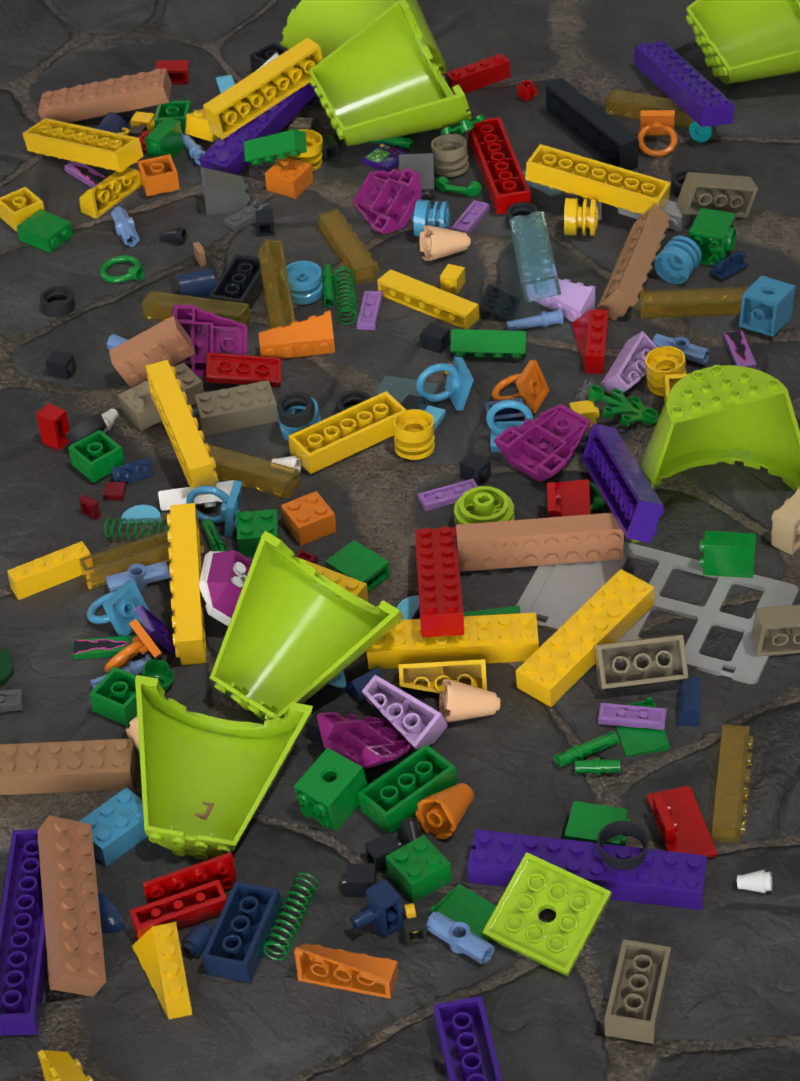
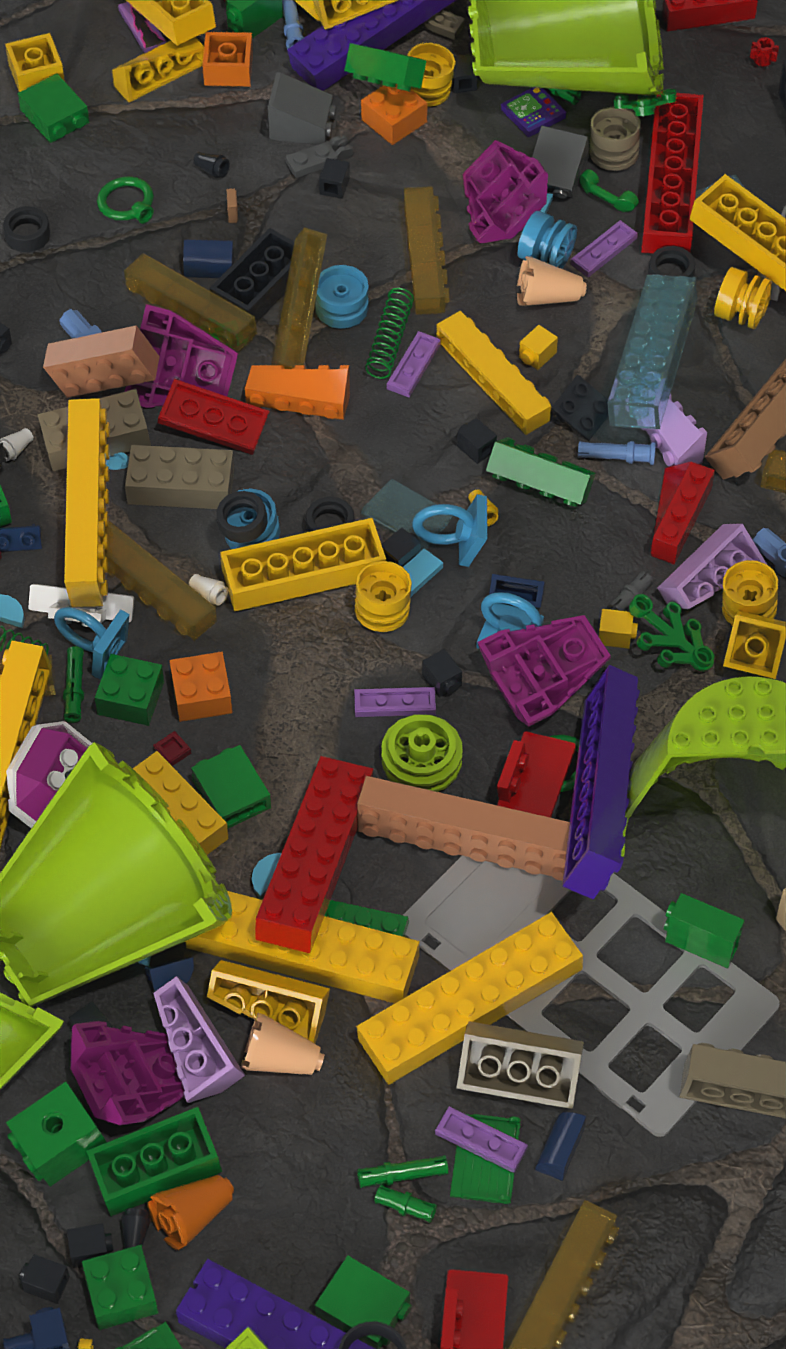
camera: 15 degrees right, 15 degrees up
(125, 226) = (156, 130): medium blue piece -> none
(328, 285) = (376, 303): green pin -> none
(530, 386) = (560, 568): orange tile -> none

